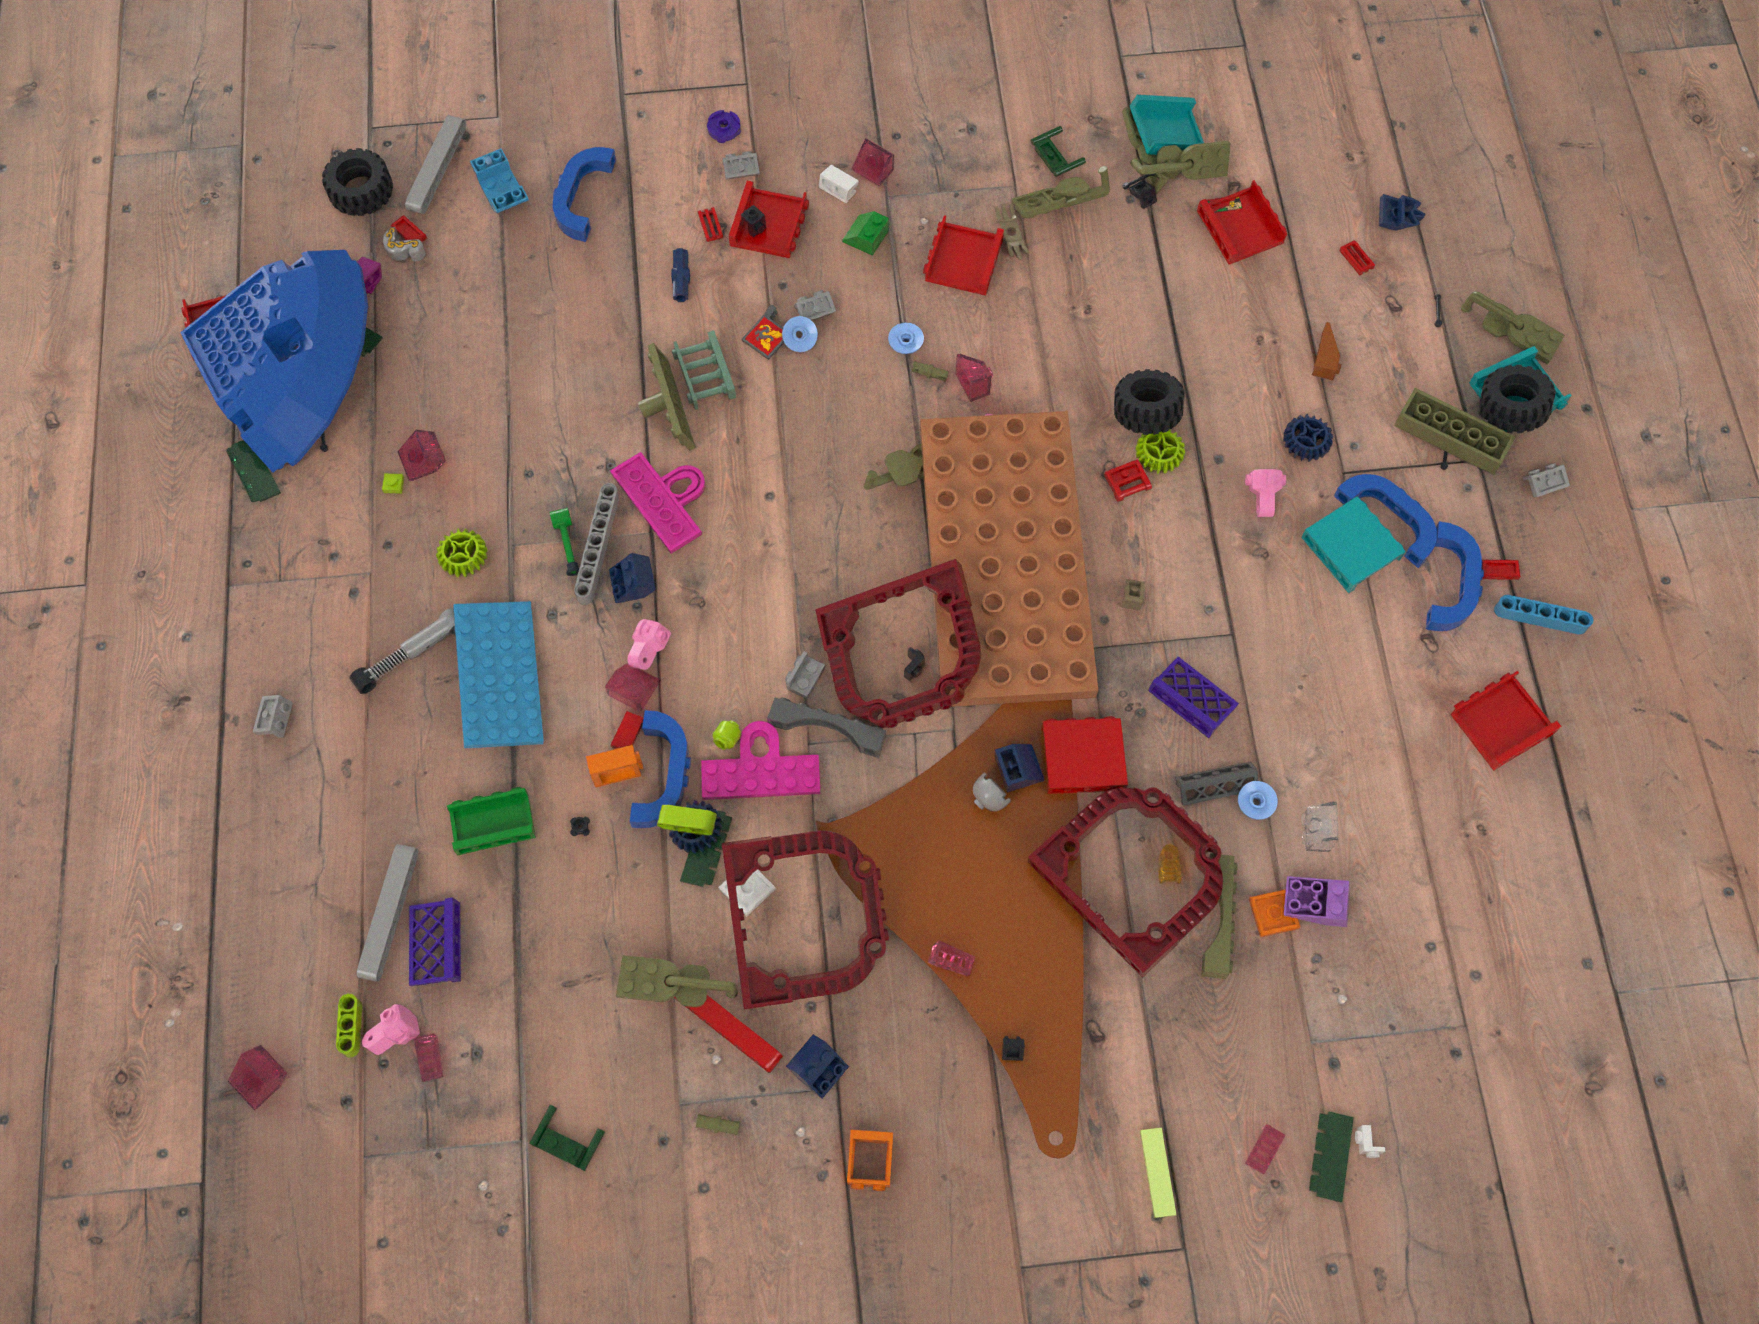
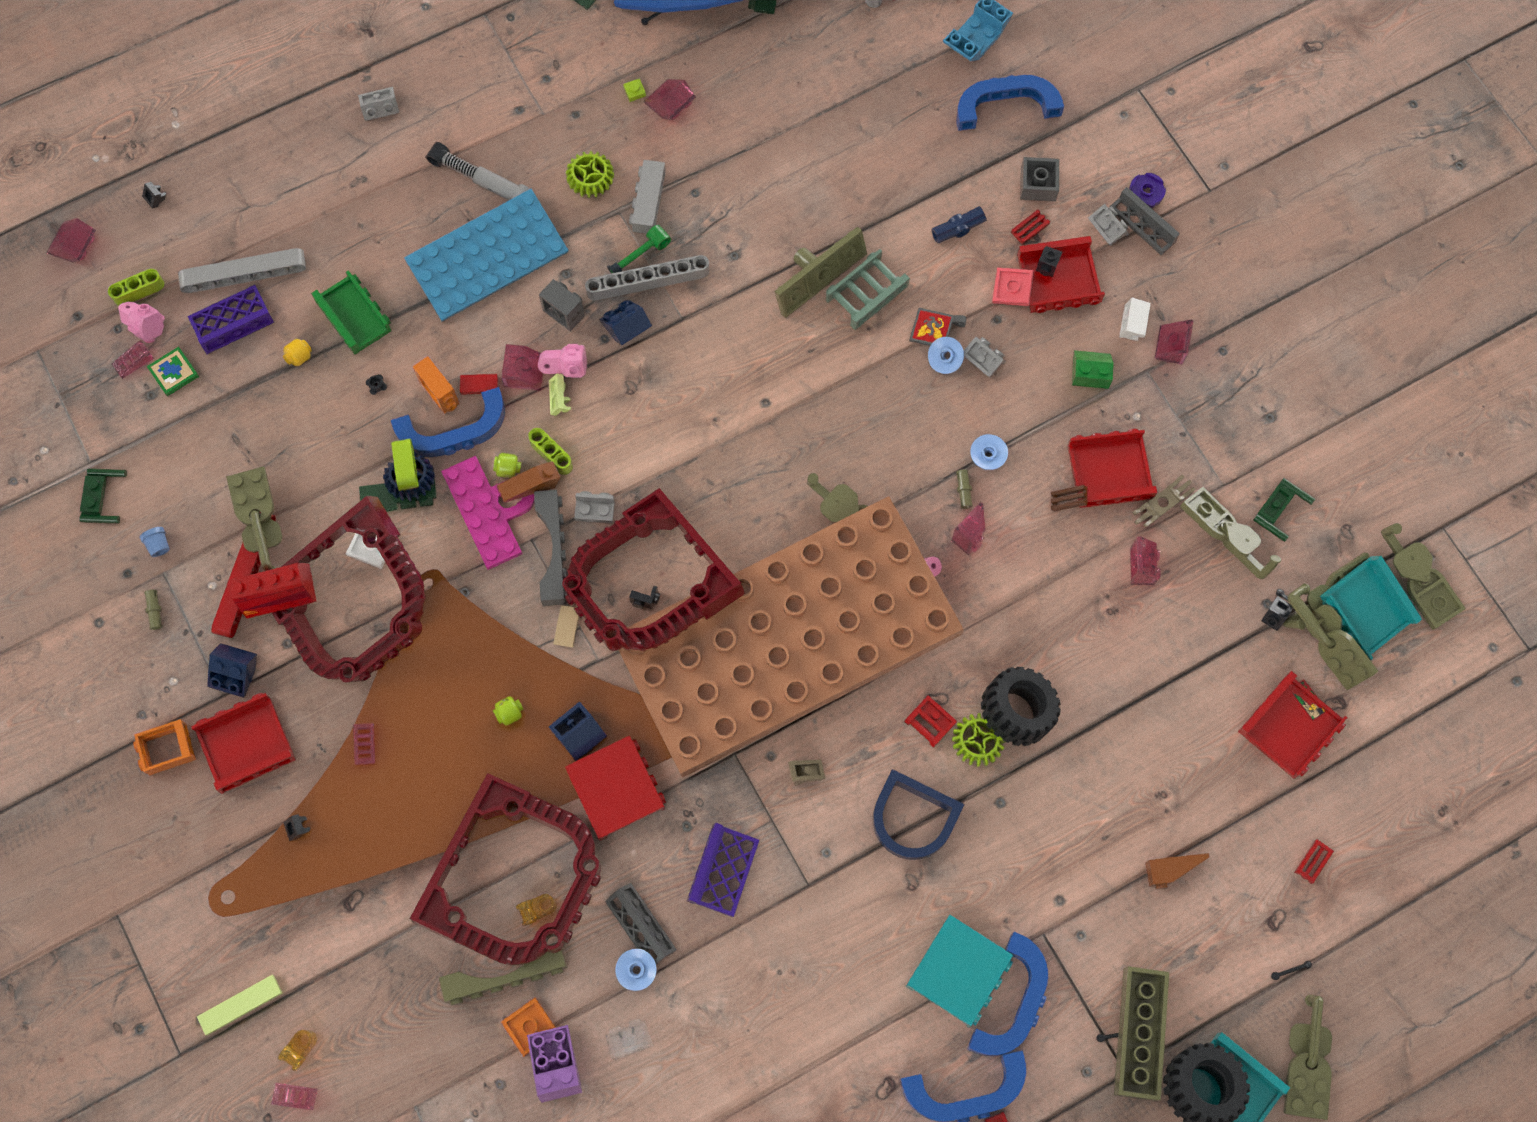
camera: 65 degrees right, 5 degrees up
(250, 974) = (152, 194): none -> black tile
(463, 1020) = (172, 371): none -> tile
(508, 888) = (297, 352): none -> yellow head
(513, 511) = (648, 196): none -> light grey brick
(589, 623) = (562, 304): none -> dark grey brick
(646, 1097) = (155, 541): none -> medium blue piece
(656, 501) = (712, 308): dark pink plate -> none
(671, 196) = (1039, 179): none -> dark grey brick
(675, 665) = (556, 395): none -> yellowish green plate
(724, 699) = (547, 443): none -> lime beam
(749, 136) = (1151, 219): none -> dark grey fence
(755, 718) = (535, 479): none -> dark orange slope
(760, 259) = (1013, 286): none -> coral tile
(762, 986) = (273, 590): none -> red slope
(897, 1081) = (243, 742): none -> red panel
(910, 741) = (566, 626): none -> tan slope
(972, 309) = (1056, 498): none -> reddish brown tile
(972, 820) = (508, 710): none -> lime head
(989, 794) = (539, 715): light grey cylinder -> none
(1059, 266) = (1144, 562): none -> clear pink slope
(1160, 83) = (1434, 597): none -> olive plate
(1222, 1130) = (295, 1052): none -> clear yellow piece
(1225, 502) = (898, 779): none -> dark blue window
(1264, 485) = (982, 856): bright pink piece -> none
(1310, 432) = (1070, 889): dark blue gear -> none
(1399, 212) = (1393, 887): dark blue plate -> none

